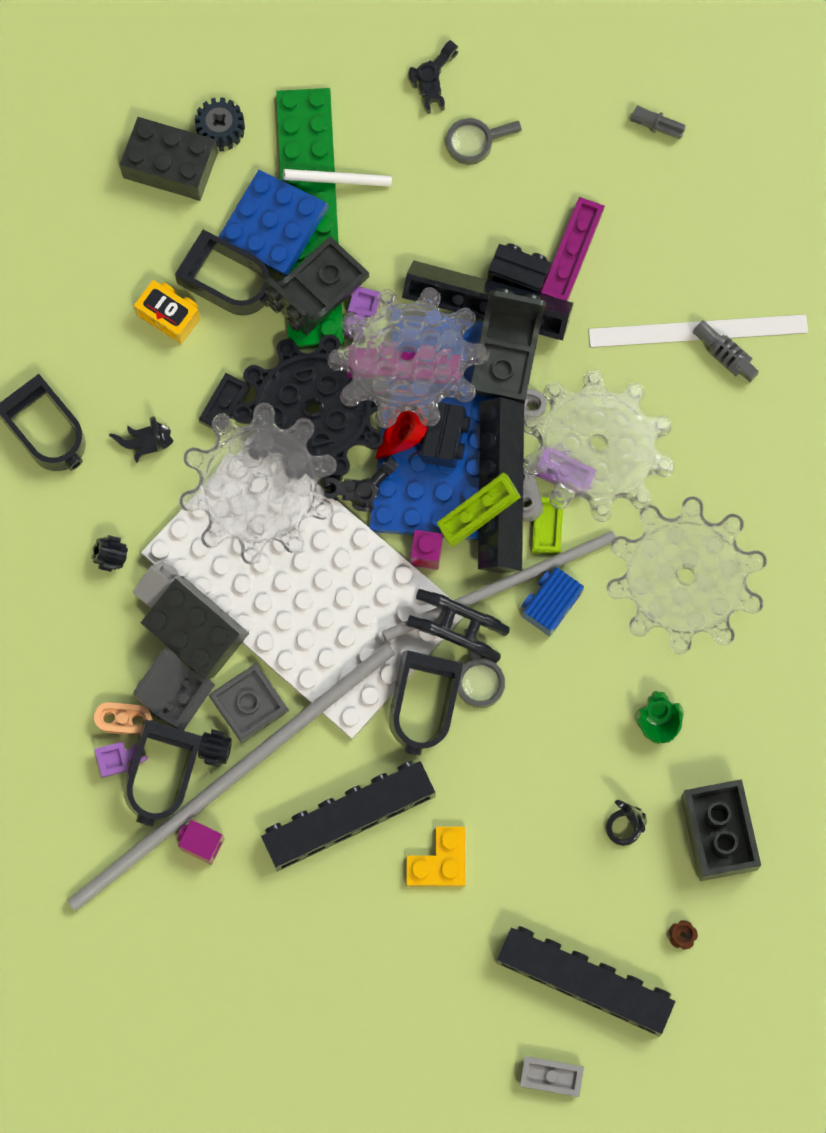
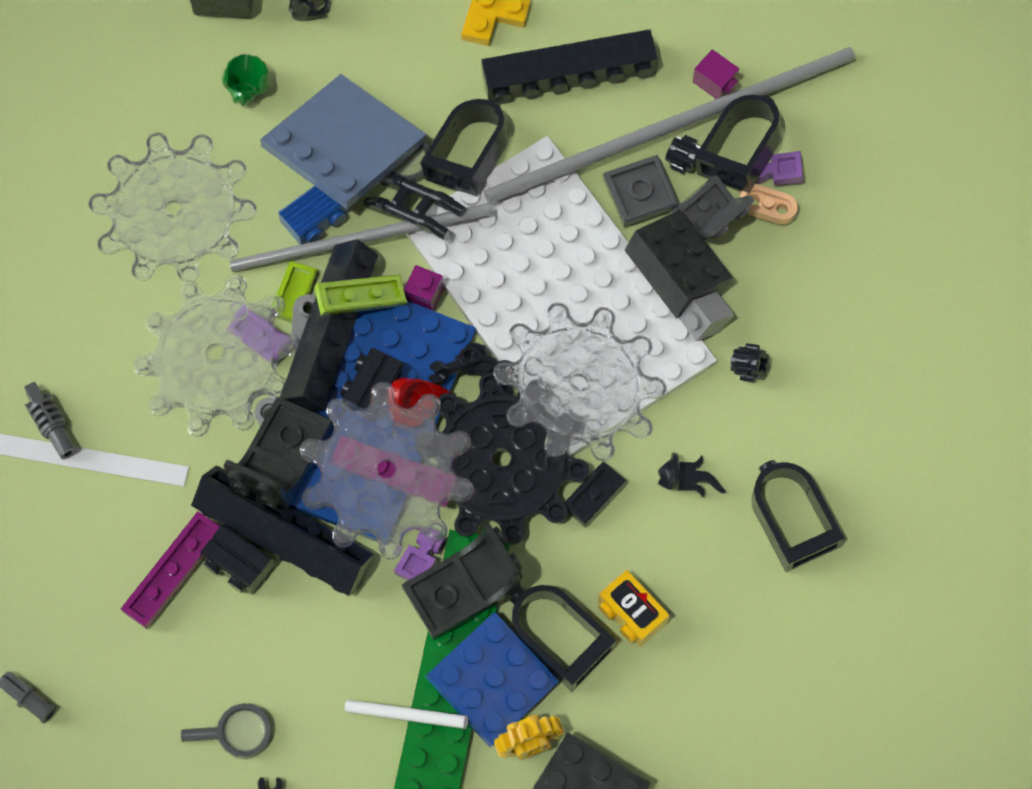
camera: 165 degrees left, 5 degrees down
(229, 178) = (528, 737): none -> yellow gear
(545, 676) = (343, 141): none -> sand blue plate

